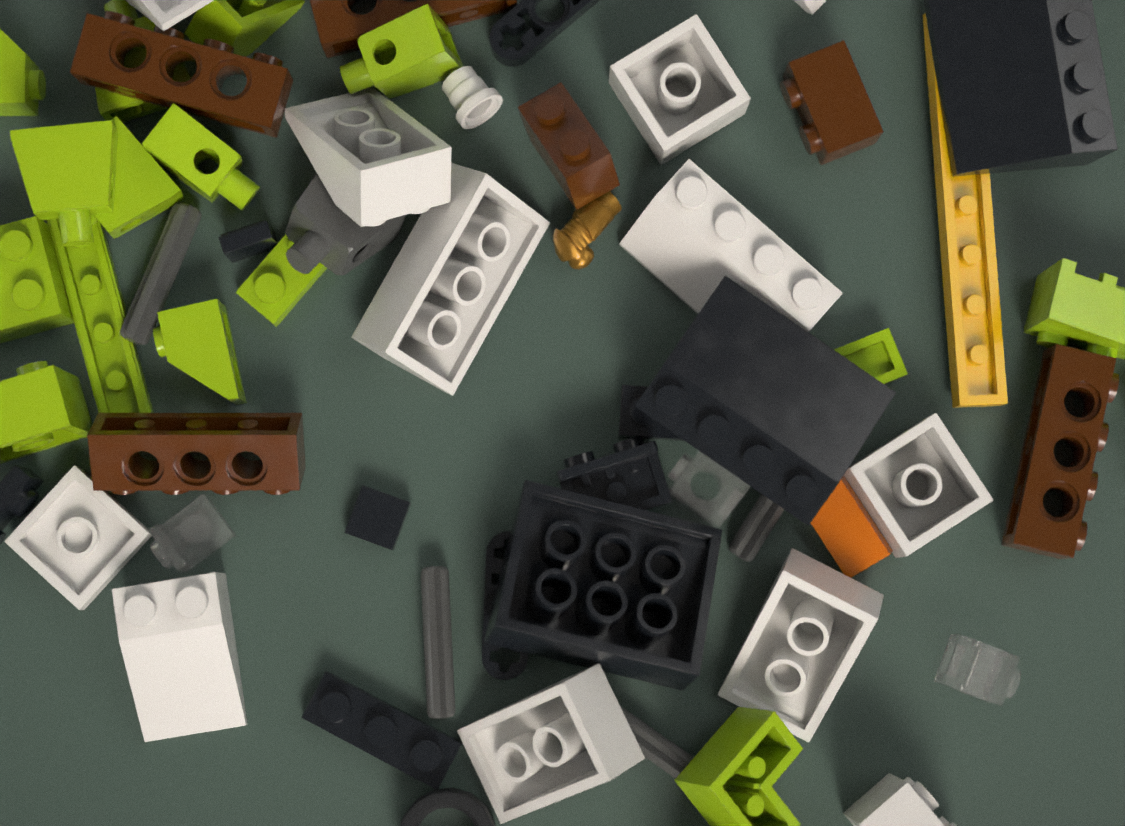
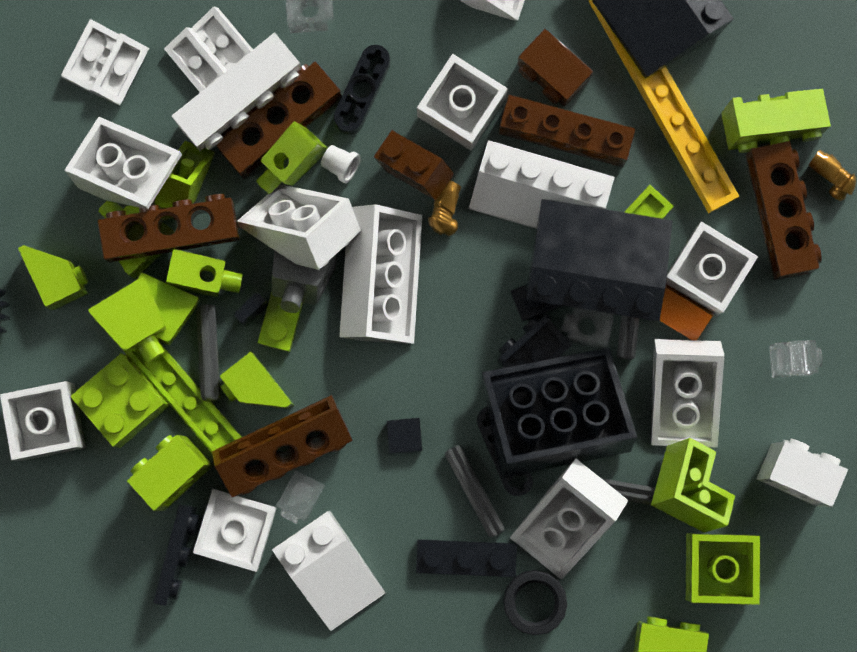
camera: 20 degrees left, 0 degrees up
(806, 198) = (566, 131): none -> reddish brown brick

